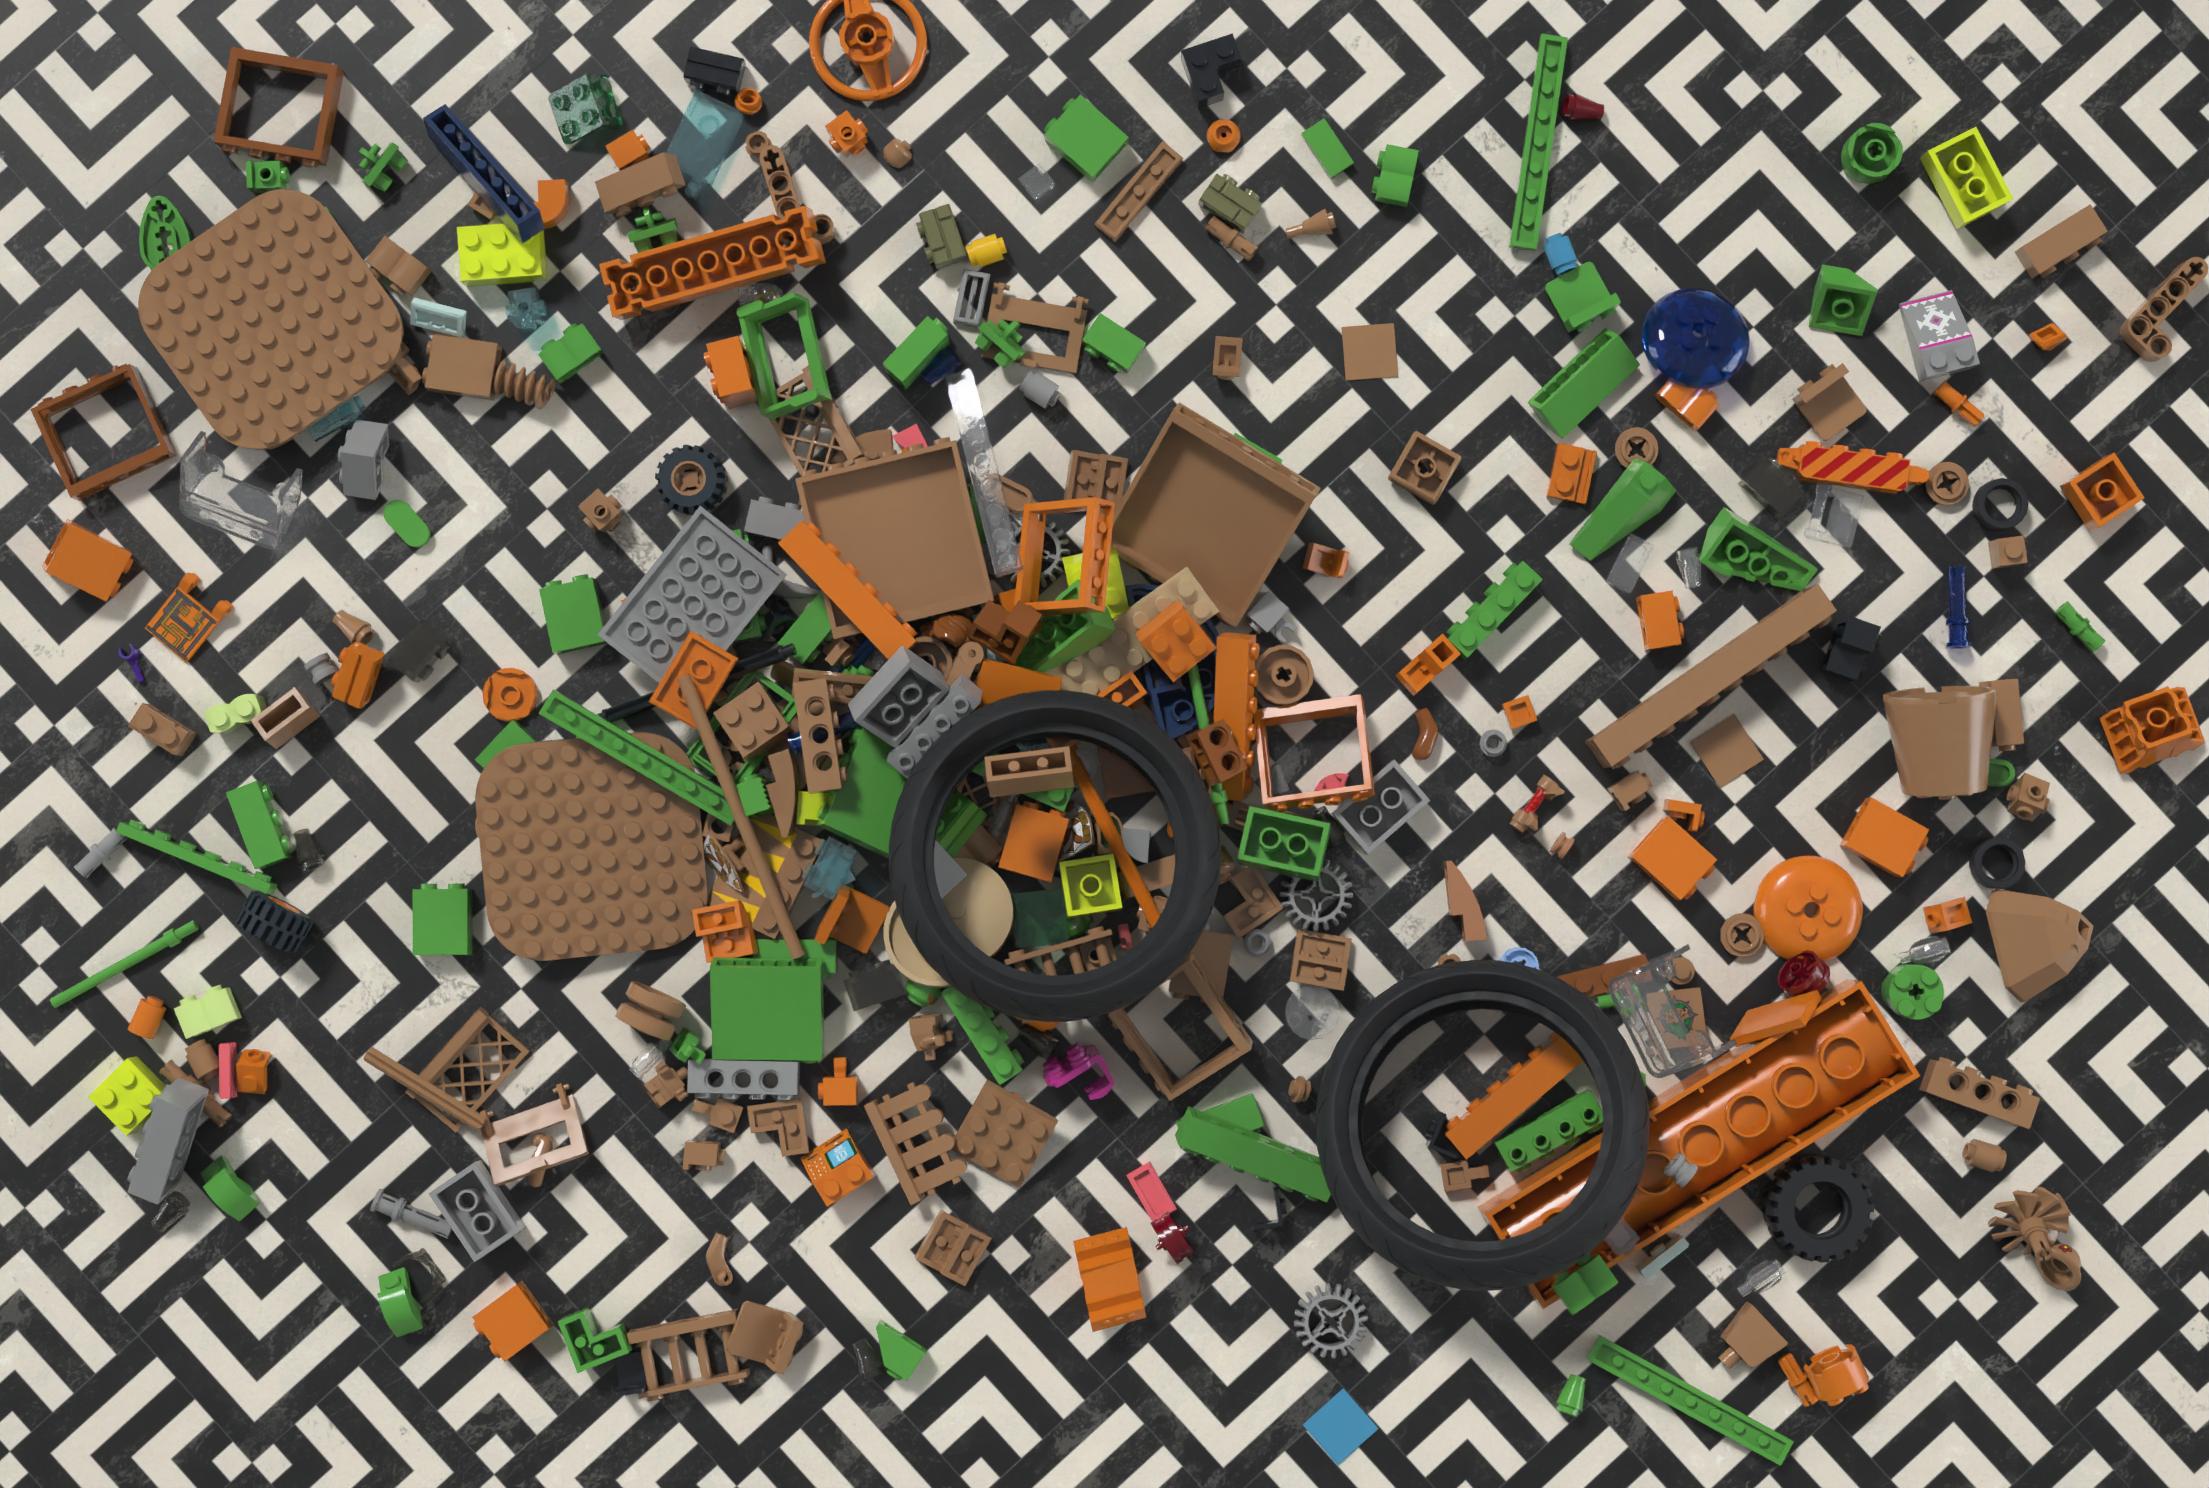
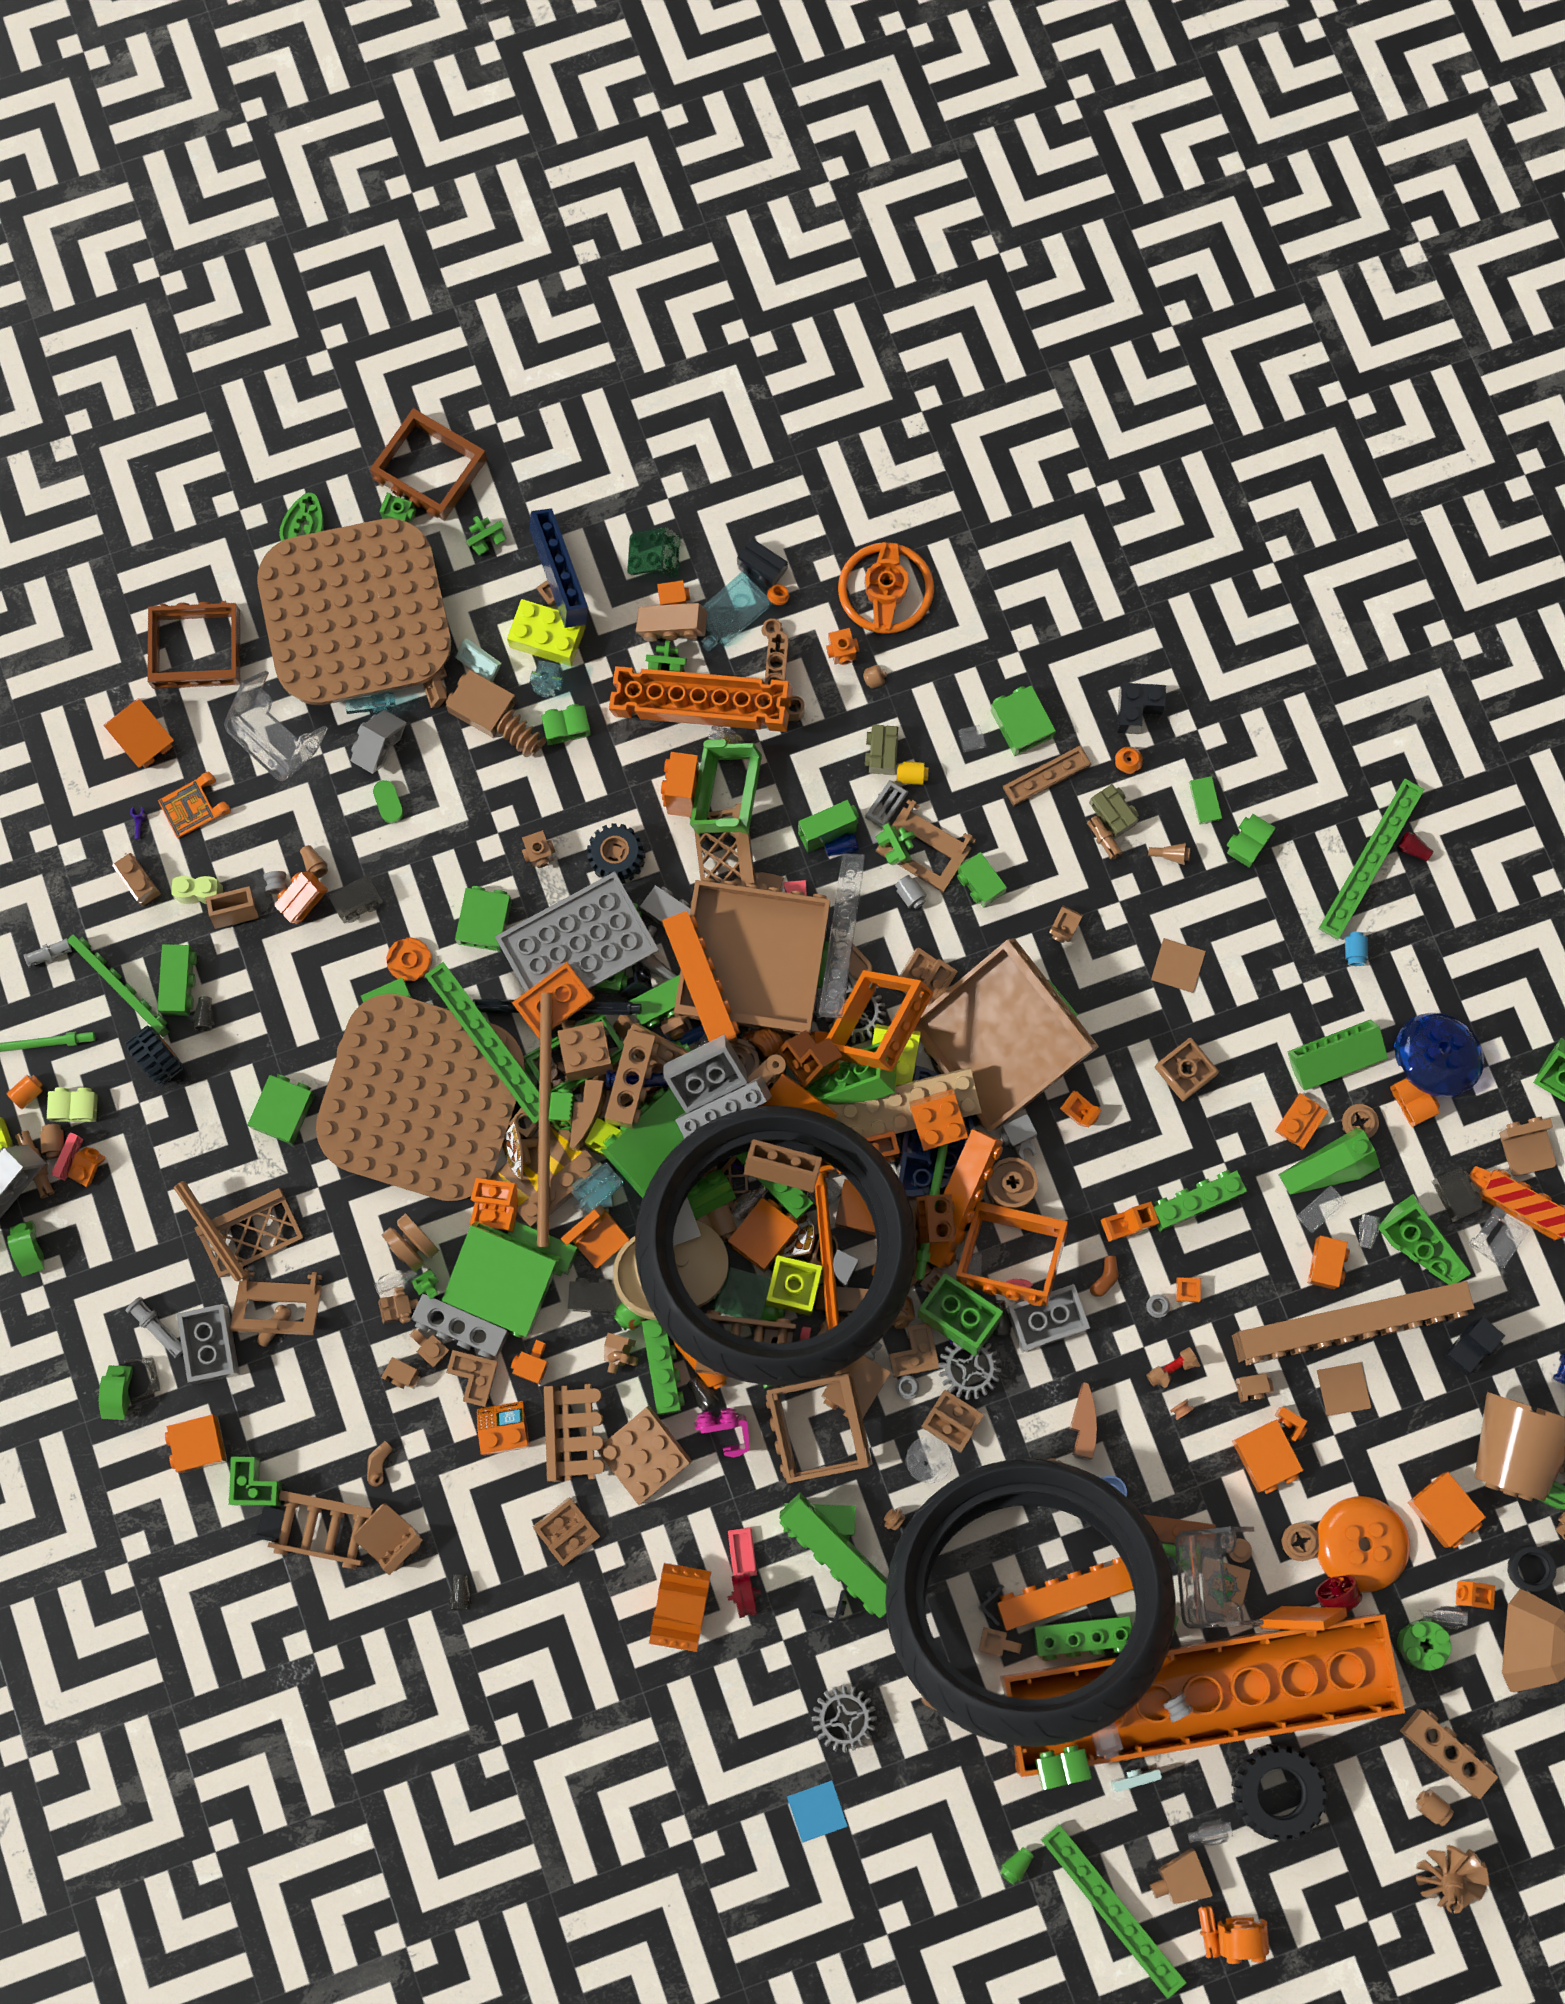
camera: 25 degrees right, 10 degrees down
(398, 266) = (465, 612): medium nougat brick -> none
(553, 201) = (601, 610): orange brick -> none
(898, 1351) = (487, 1597): bright green slope -> none
(1581, 297) = (1360, 989): bright green bracket -> none
(2062, 1269) = (1464, 1928): medium nougat hat -> none

